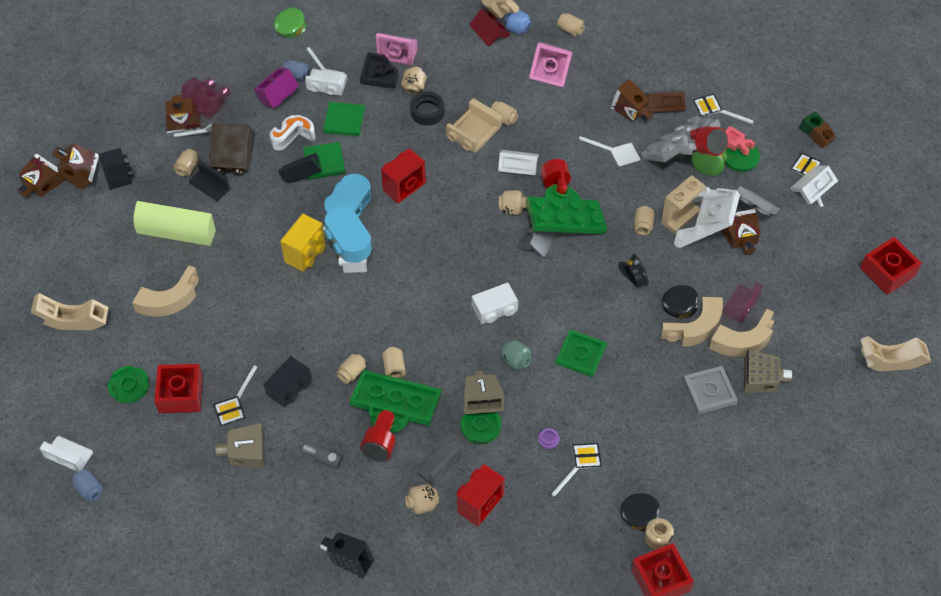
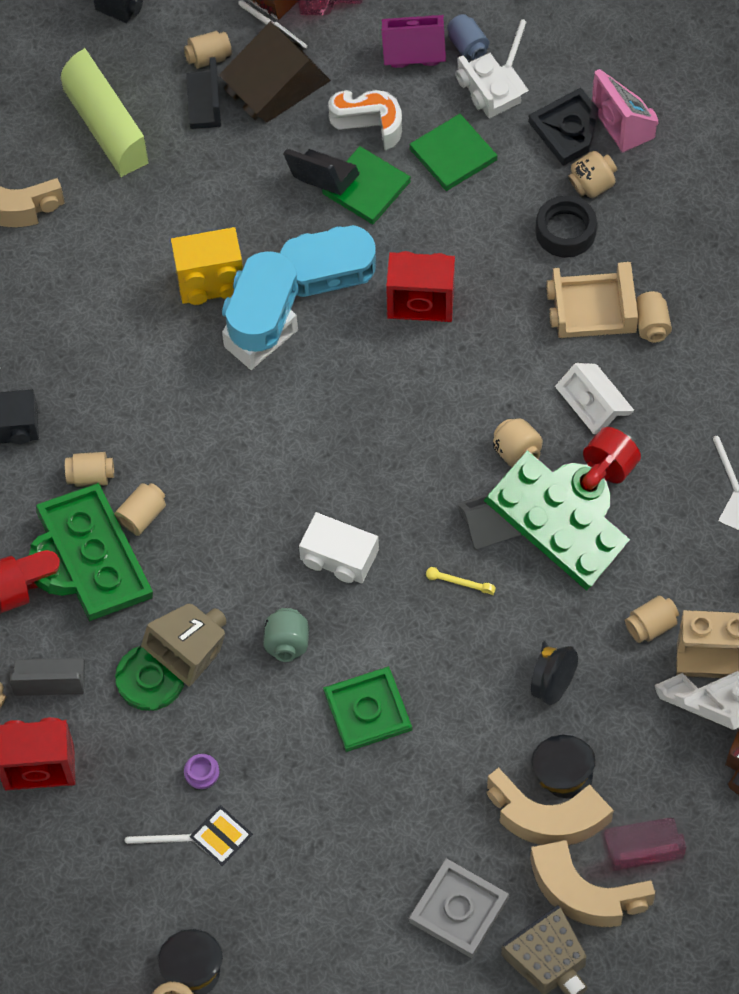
camera: 50 degrees right, 5 degrees up
(540, 280) = (432, 574): none -> light yellow hinge

